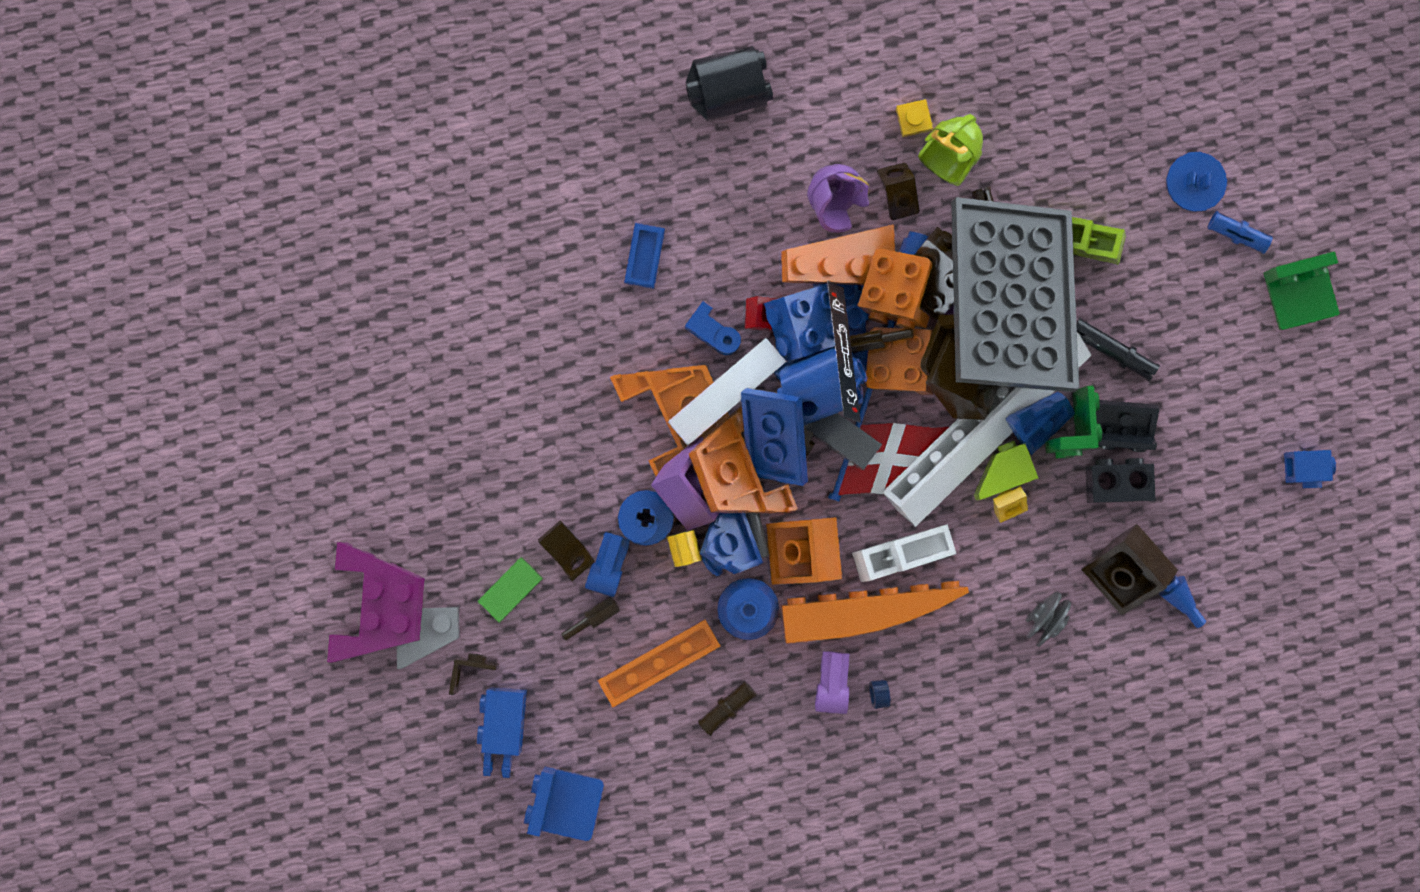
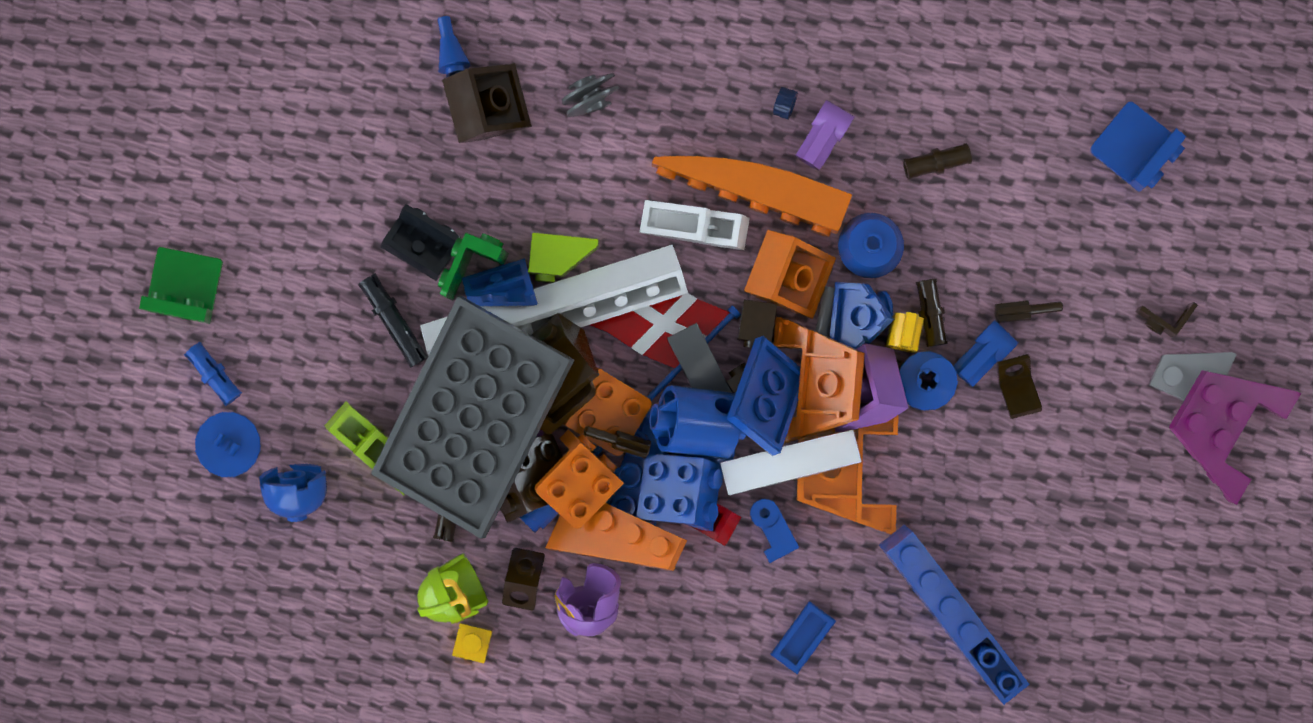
camera: 150 degrees left, 0 degrees up
(502, 726) = (1161, 249): blue hinge -> none
(510, 589) = (1090, 376): bright green tile -> none
(530, 335) = (953, 613): none -> blue slope
(659, 663) = (981, 236): orange plate -> none
(669, 577) = (931, 312): none -> dark brown pin
(812, 497) = (756, 321): none -> dark brown brick
(843, 352) = (663, 442): black sticker -> none
(1010, 504) = (569, 221): yellow plate -> none
(1120, 487) = (457, 183): black brick -> none
(1124, 166) = (294, 492): none -> blue cylinder
(1309, 467) = (264, 114): blue brick -> none

